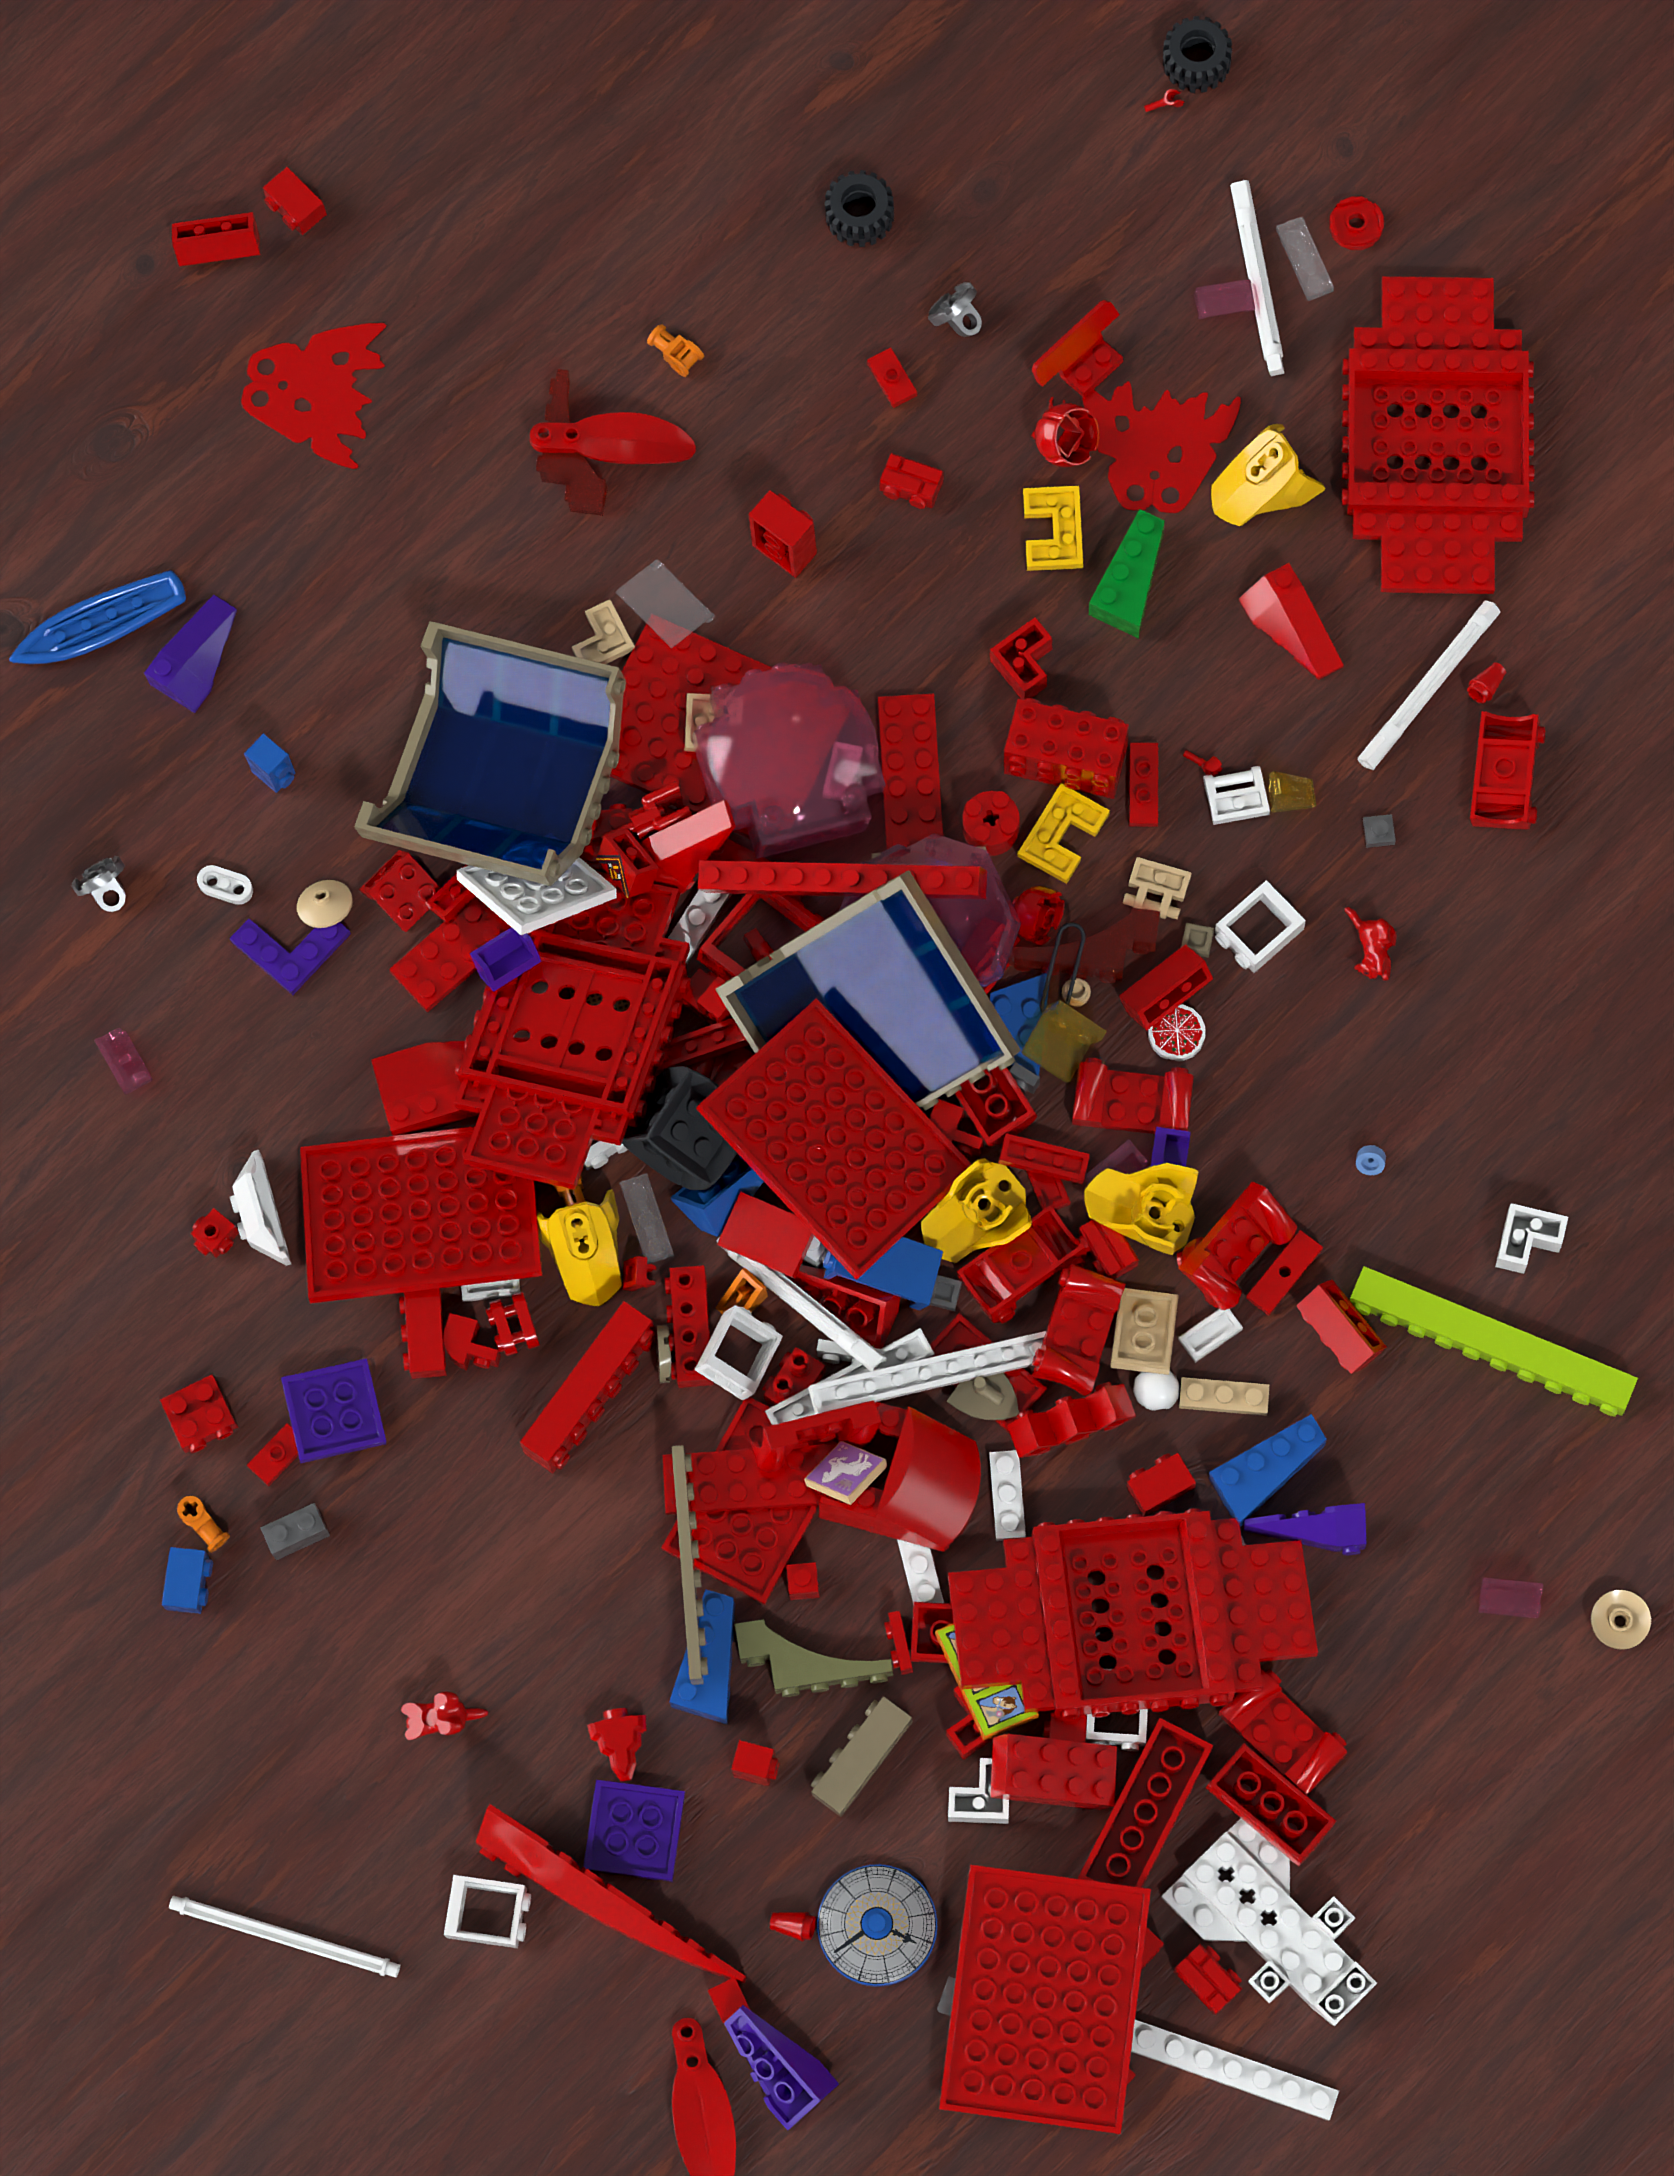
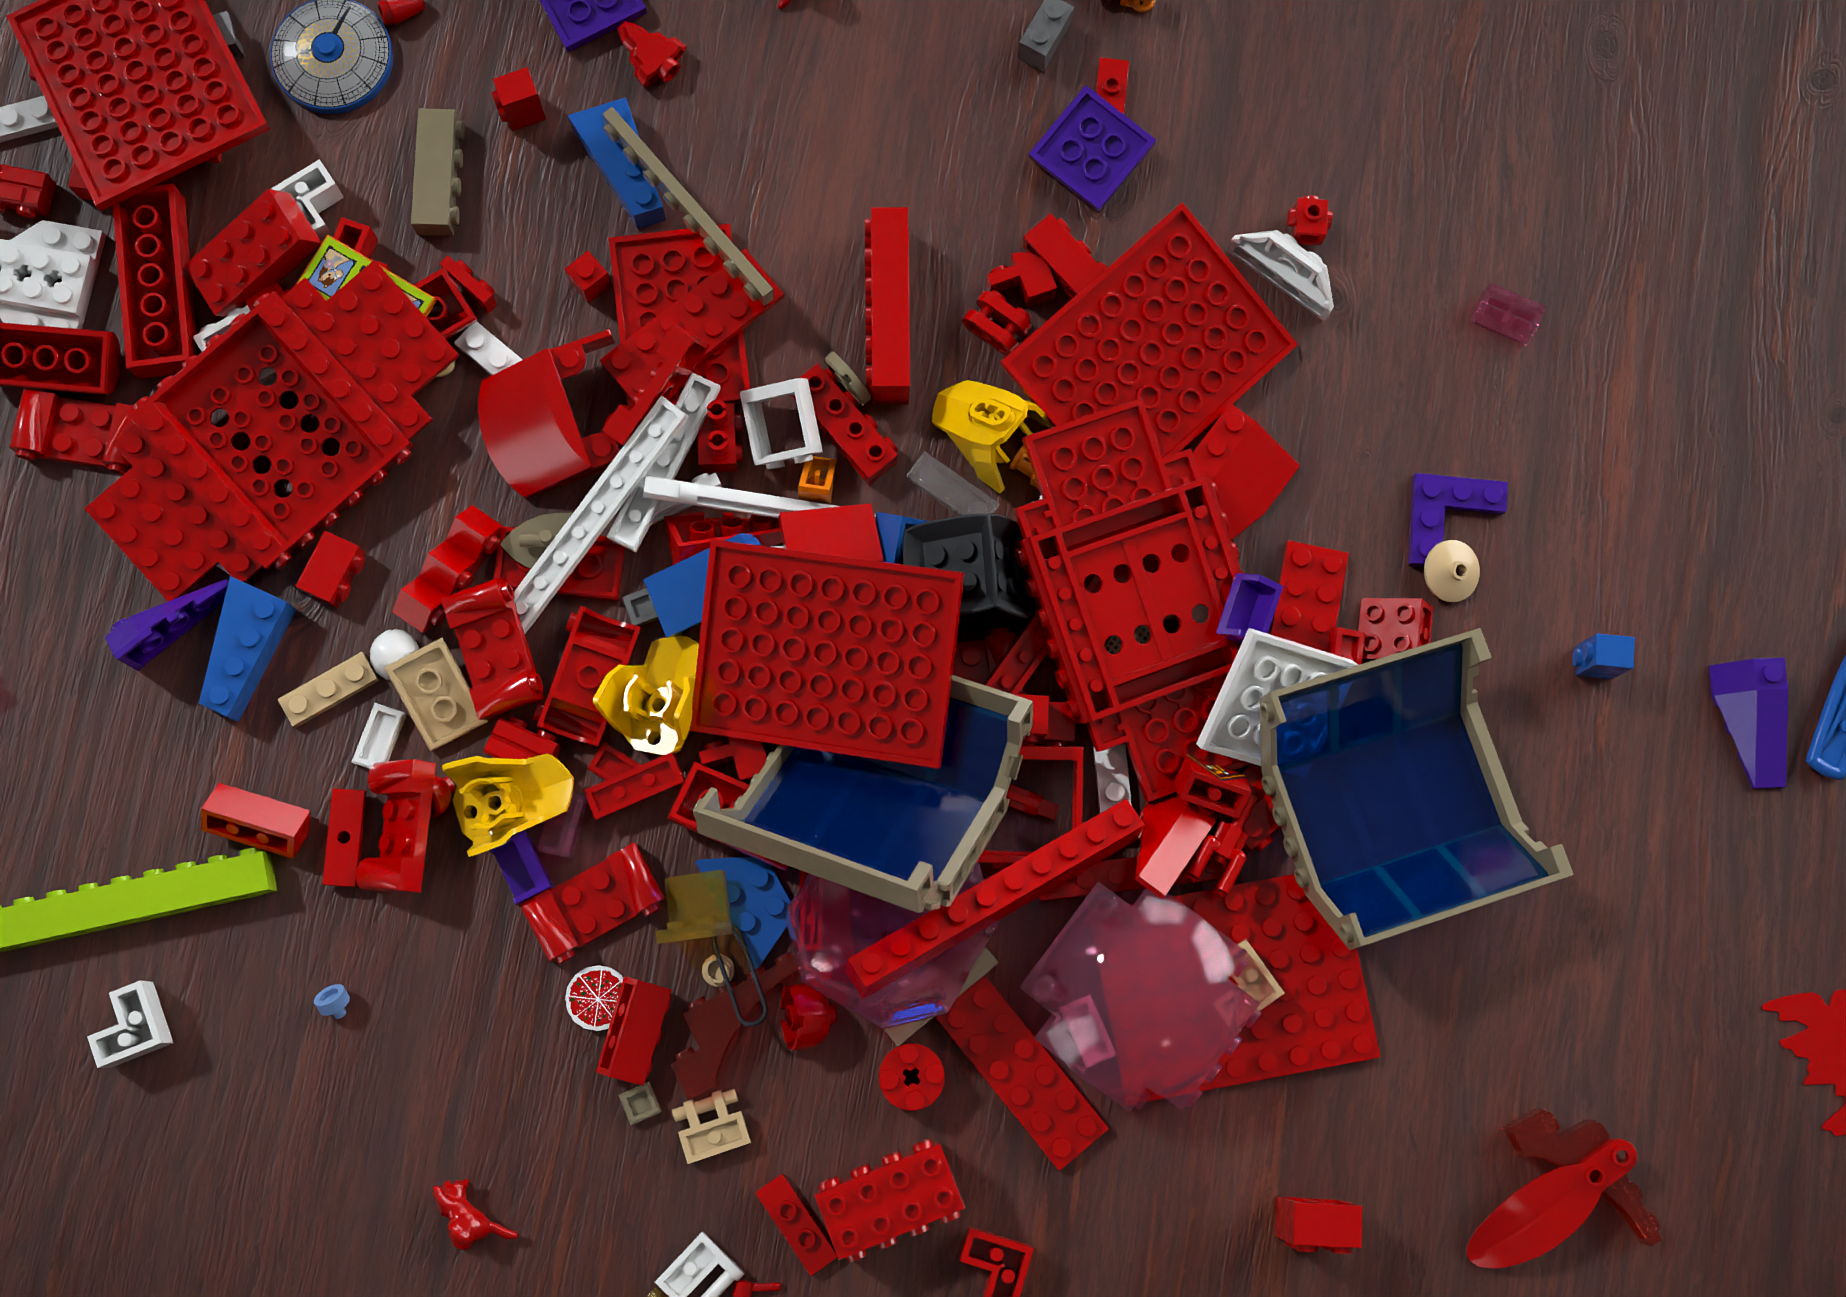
camera: 130 degrees right, 5 degrees up
(100, 879) = (1660, 451): flat silver tile -> none
(199, 1414) = (1200, 74): red plate -> none
(226, 885) = (1549, 526): white plate -> none
(610, 638) = (1397, 1003): tan plate -> none
(636, 1273) = (926, 437): red tile -> none
(664, 603) = (1376, 1076): clear piece -> none
(802, 1669) = (540, 207): olive arch -> none
(845, 1472) = (605, 372): tile -> none
(1007, 1495) = (464, 471): white plate -> none
(1025, 1078) = (707, 849): flat silver plate -> none
(1042, 843) = (854, 1142): yellow plate -> none
(1280, 908) = (578, 1189): white window -> none

